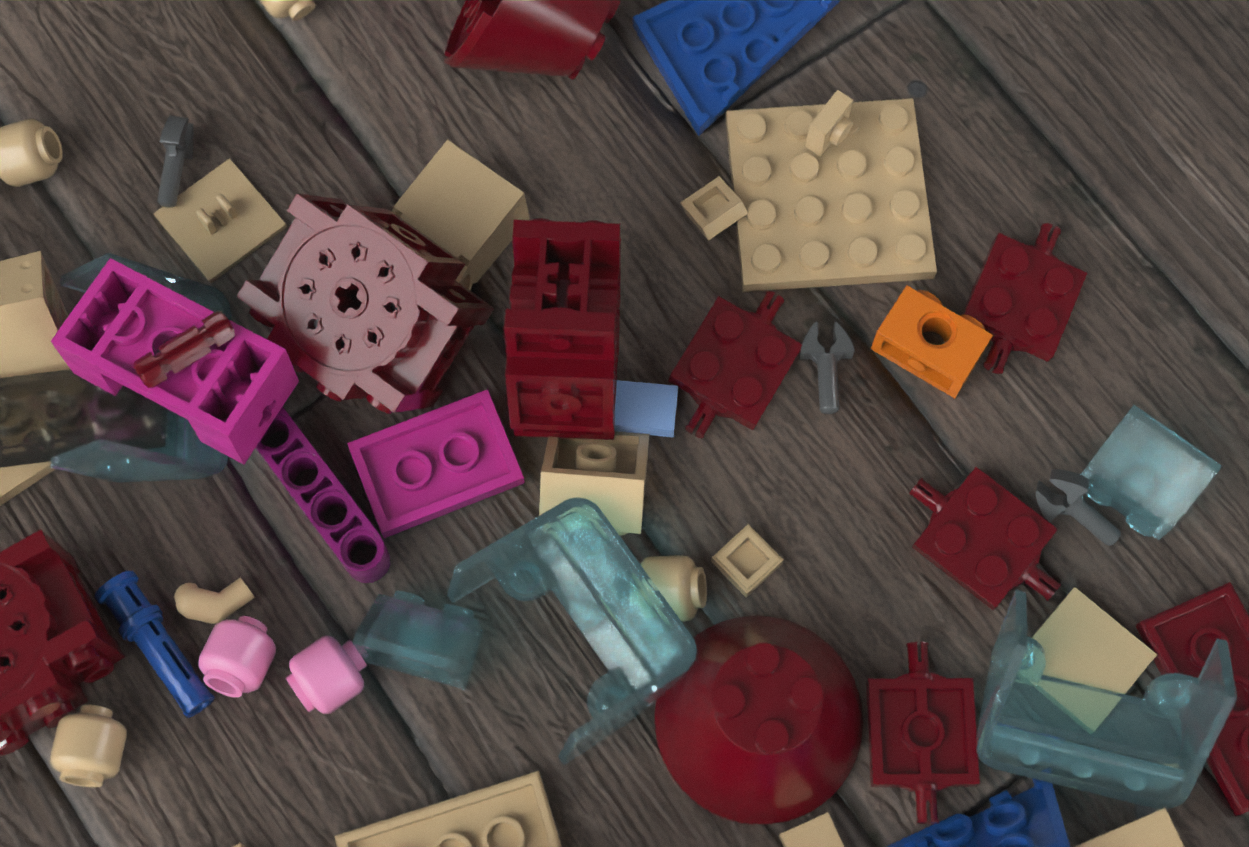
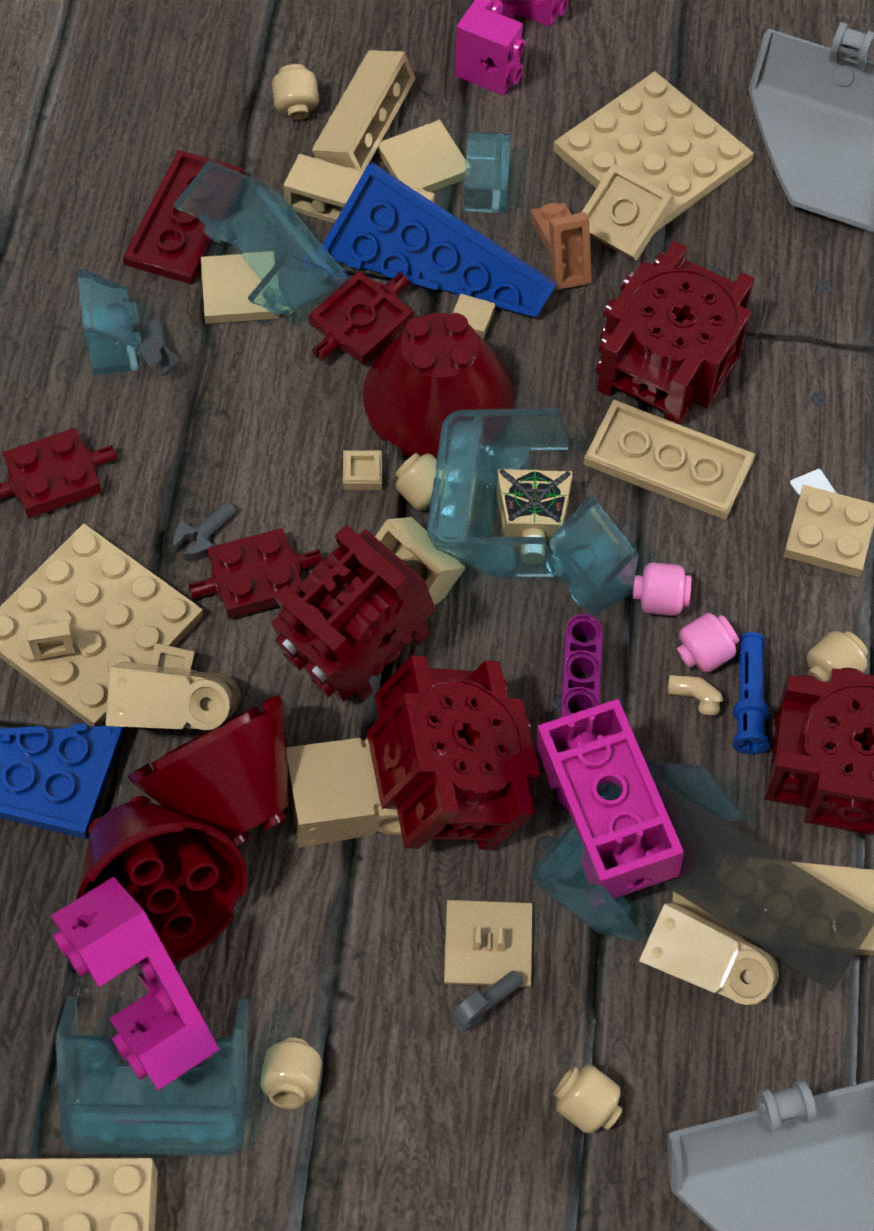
camera: 140 degrees left, 10 degrees down
(184, 349) = (602, 766): dark red axle -> none
(435, 463) = (525, 657): dark pink plate -> none
(534, 655) = (532, 501): none -> torso
(563, 125) = (227, 775): none -> dark red cone
(668, 156) = (169, 697): none -> tan piece
(940, 365) = (137, 507): orange brick -> none
(985, 538) = (222, 376): dark red plate -> none

